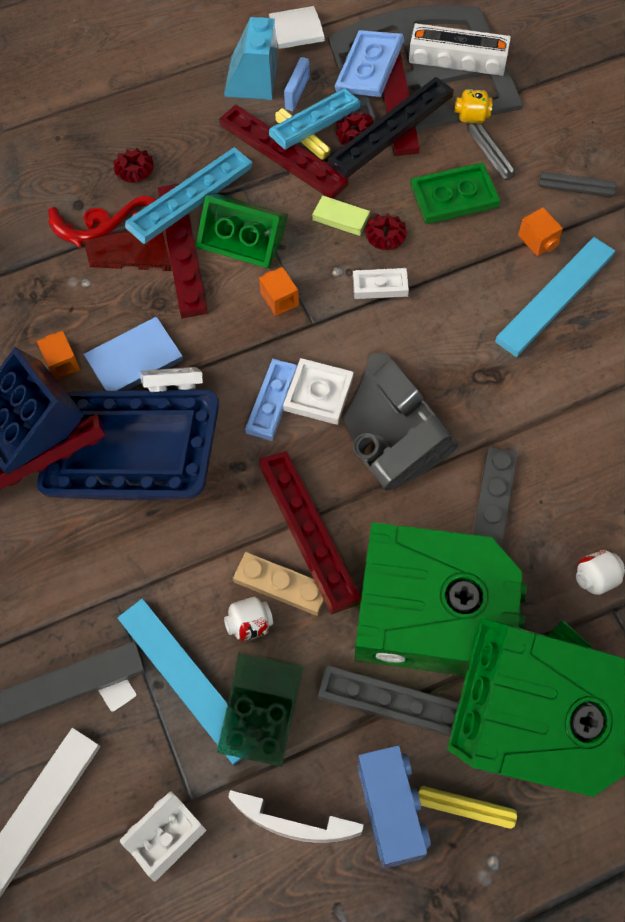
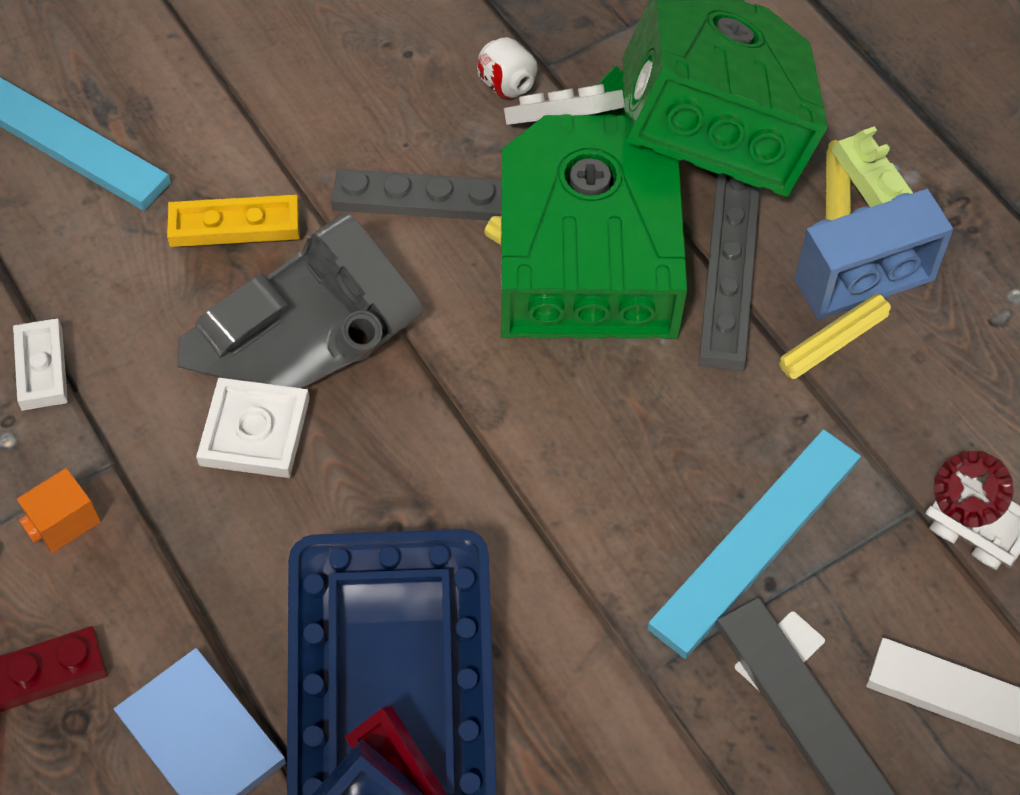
camera: 100 degrees left, 5 degrees down
(159, 379) = (255, 638): white plate -> none
(193, 829) = (973, 511): none -> dark red gear
(248, 619) = (653, 465): white head -> none
(260, 708) = (774, 426): clear green slope -> none
(270, 400) = (269, 498): light blue tile -> none
(279, 583) = (584, 441): tan plate -> none
(309, 533) = (498, 406): dark red plate -> none
(336, 831) = (915, 327): white slope -> none
(337, 773) = (834, 336): none -> light yellow axle
(476, 388) = (233, 220): none -> yellow plate
(479, 837) = (869, 167): none -> yellowish green plate
(545, 597) = (590, 101): none -> white plate

